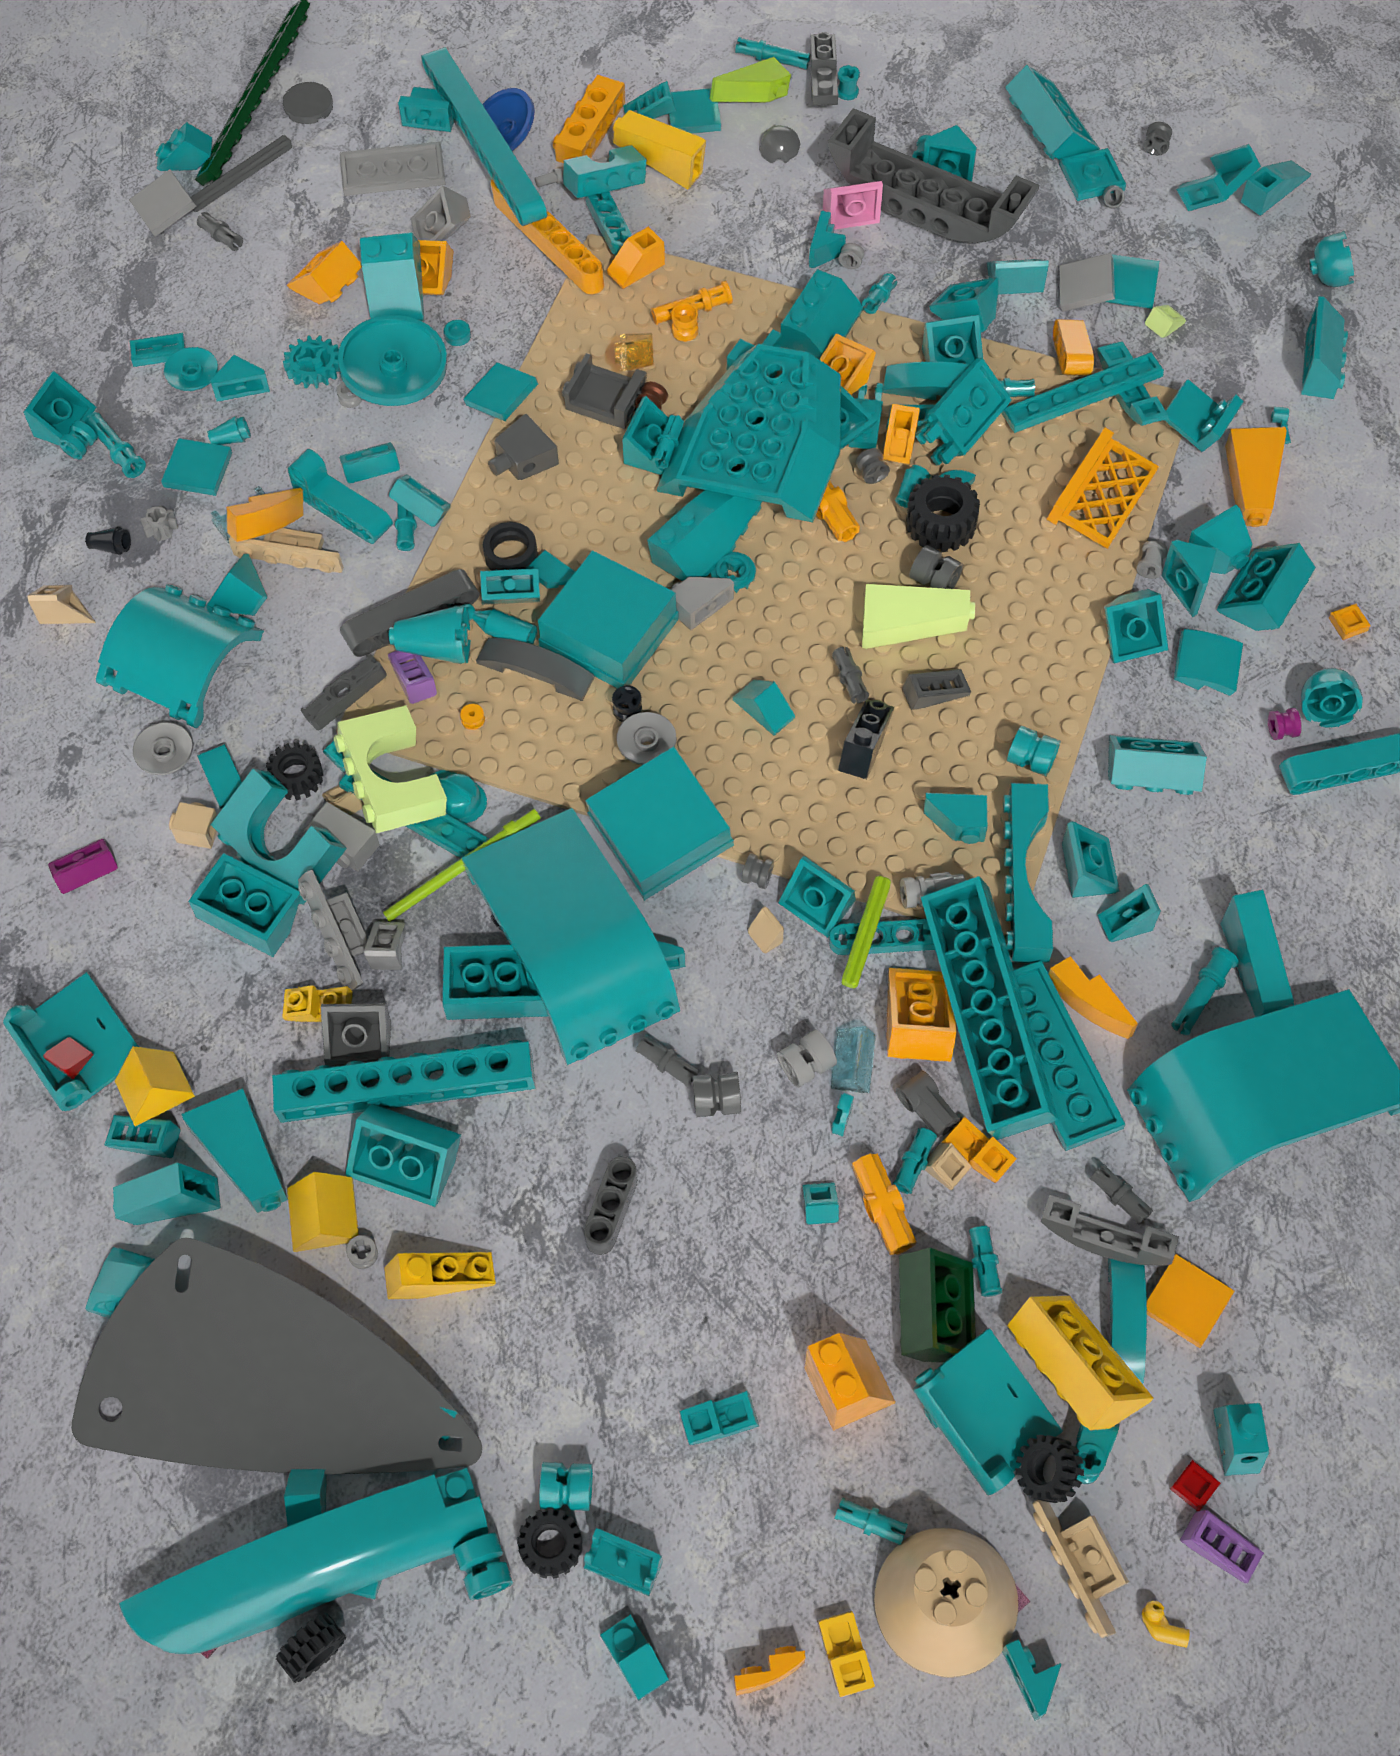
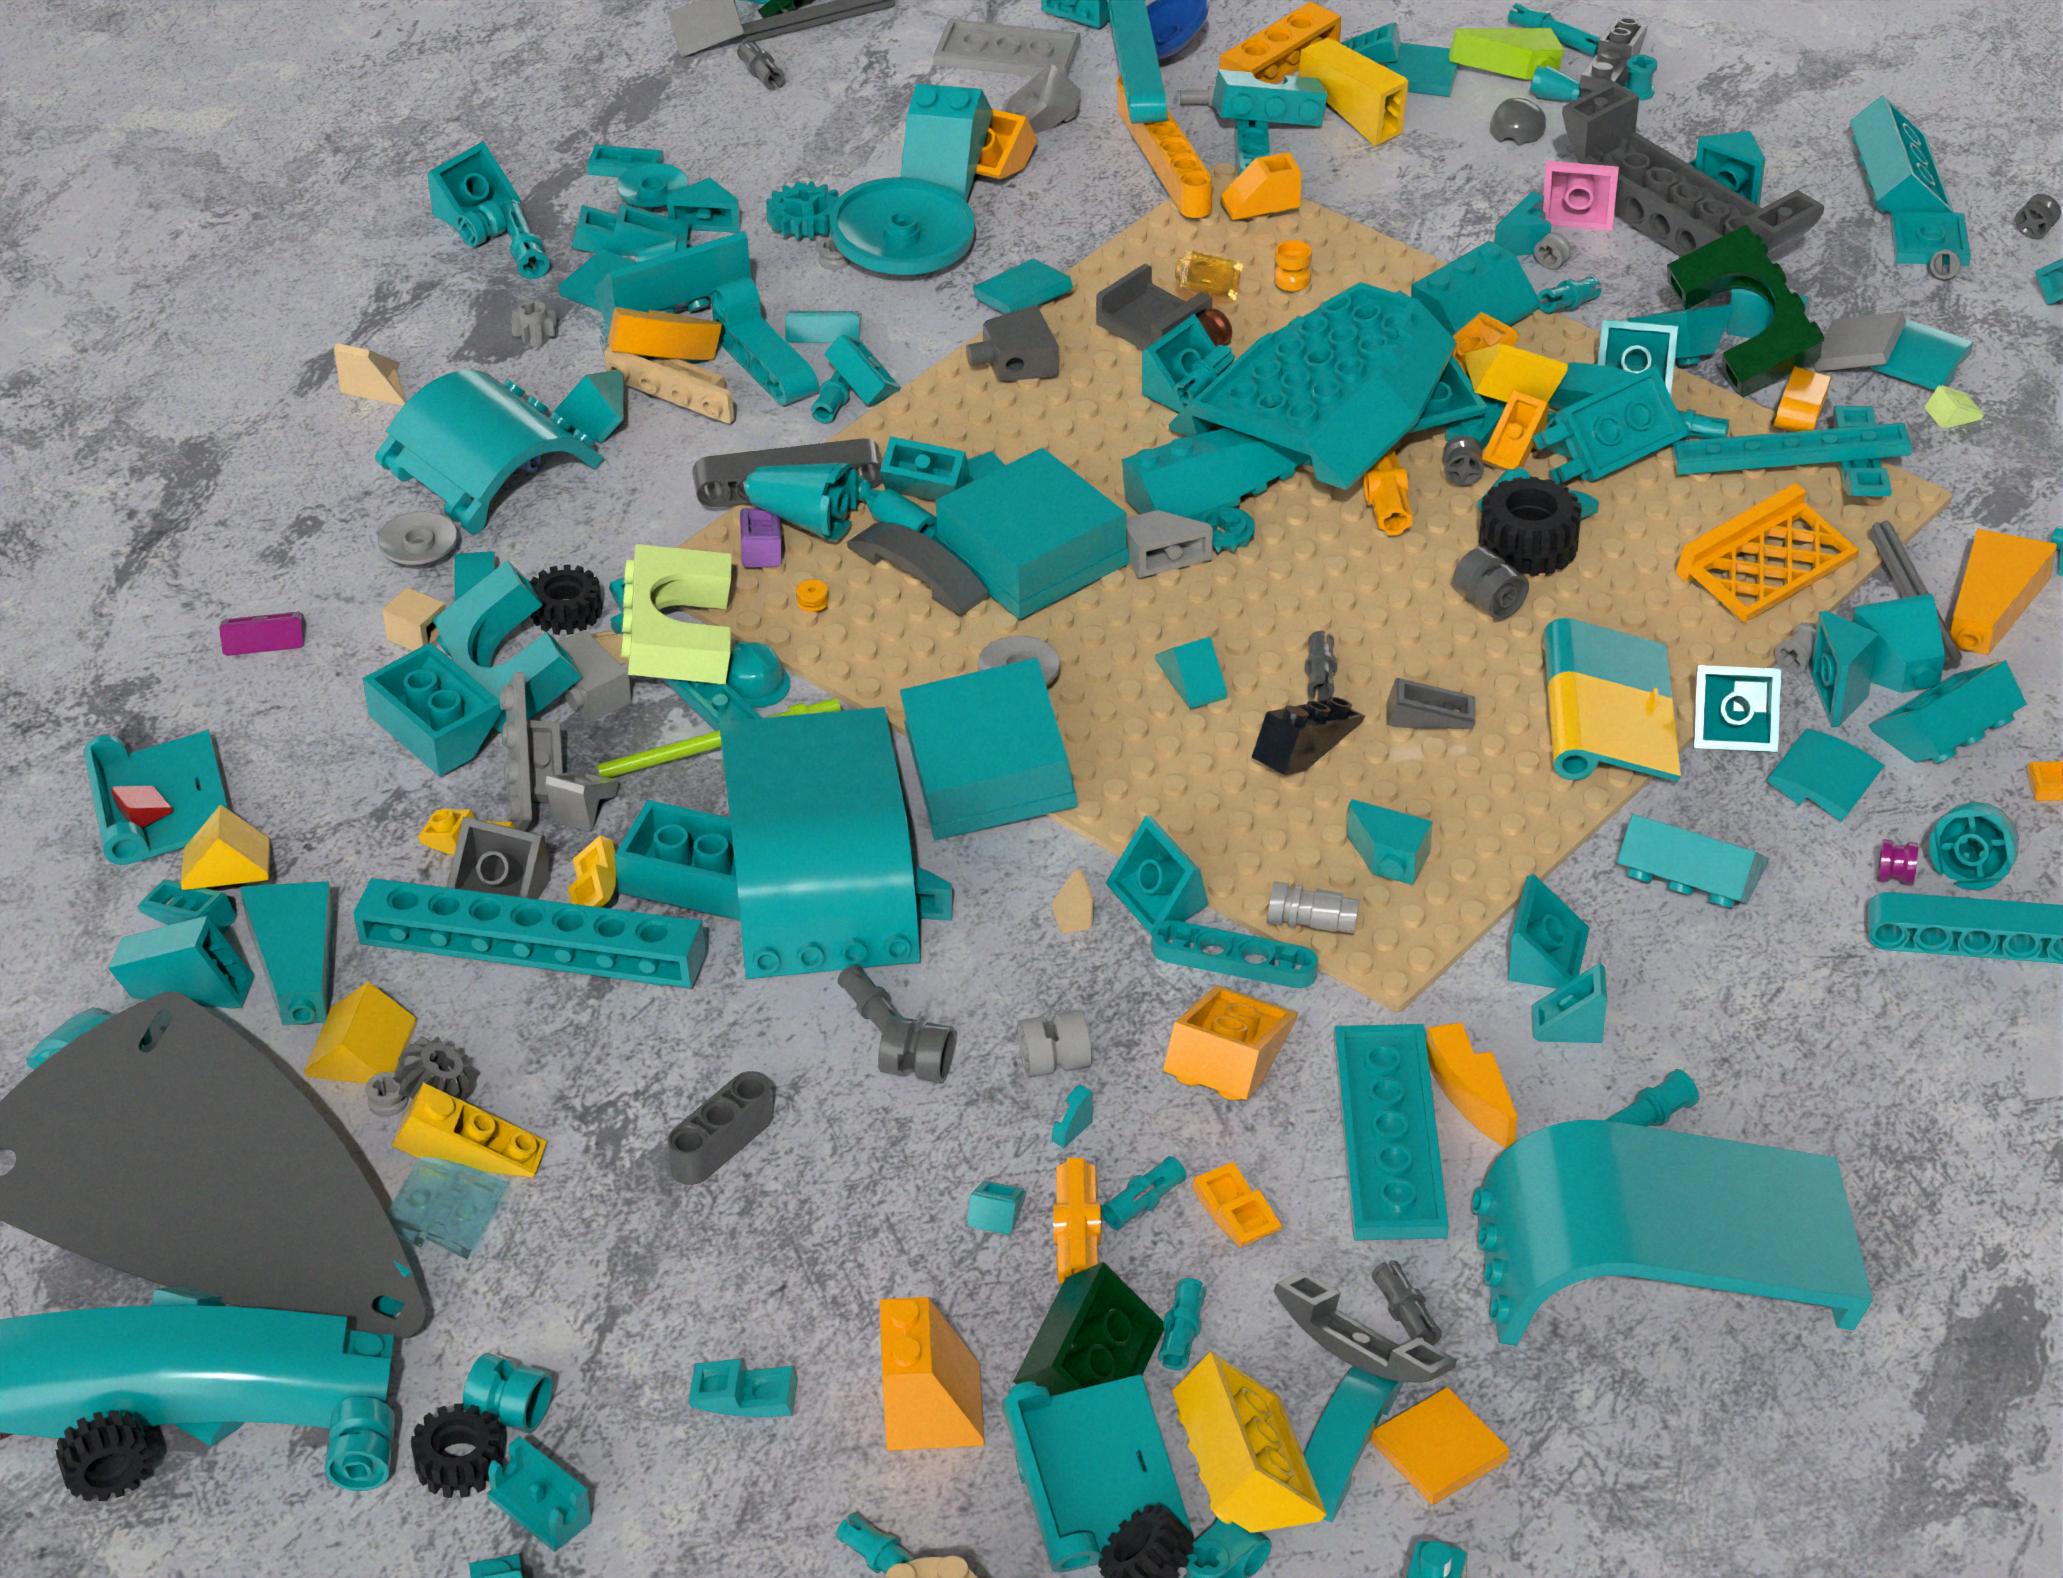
camera: 20 degrees right, 20 degrees down
(110, 540) = (466, 327): black cone -> none
(190, 417) = (624, 231): none -> teal slope
(252, 461) = (675, 279): none -> teal slope
(327, 274) = (866, 129): light orange slope -> none
(359, 681) = (671, 532): dark grey piece -> none
(392, 1230) = (434, 1065): none -> dark grey gear
(402, 1154) = (488, 1006): teal slope -> none
(431, 1021) = (594, 873): none -> yellow slope
(447, 1336) = (445, 1205): none -> clear light blue slope
(457, 332) = (1001, 223): teal tile -> none
(507, 532) = (951, 422): black tyre -> none
(628, 696) = (1013, 619): black wheel -> none
(705, 298) = (1331, 249): light orange pin -> none
(757, 871) = (1094, 839): dark grey wheel -> none
(792, 104) = (1554, 85): none -> teal cone
(854, 1059) = (1122, 1068): clear light blue slope -> none
(866, 932) = (1201, 932): lime axle -> none
(884, 390) = (1503, 368): none -> yellow slope
(913, 613) = (1436, 621): yellowish green slope -> none
(922, 1096) = (1189, 1128): dark grey piece -> none
(947, 1165) = (1186, 1212): tan slope -> none
(989, 1009) = (1318, 1046): teal brick -> none
(1003, 248) = (1742, 262): none -> dark green arch
(1030, 926) = (1479, 867): teal arch -> none
(1033, 751) = (1526, 799): teal wheel -> none
(1051, 648) = (1609, 701): none -> door
(1196, 479) = (1910, 582): none -> dark grey axle
(1199, 416) = (1943, 510): teal bracket -> none
(1255, 944) = (1727, 1069): teal slope -> none

